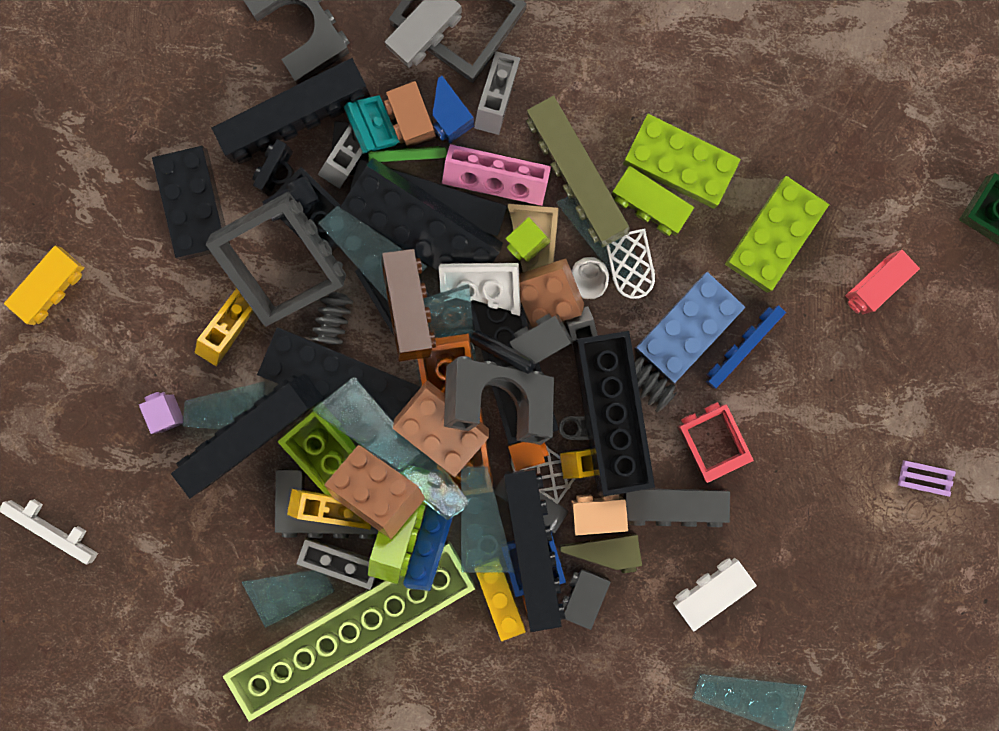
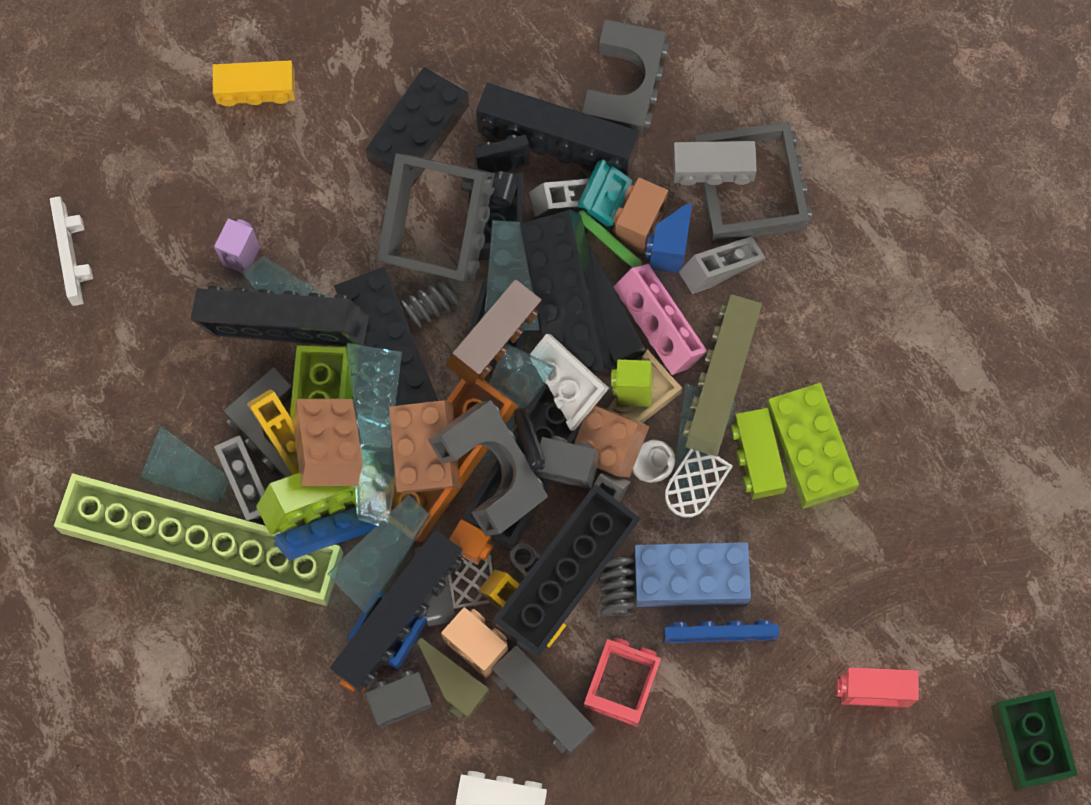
camera: 40 degrees right, 15 degrees down
(223, 329) = (344, 234): yellow slope -> none
(501, 604) = (332, 634): yellow brick -> none
(777, 234) = (831, 571): lime brick -> none

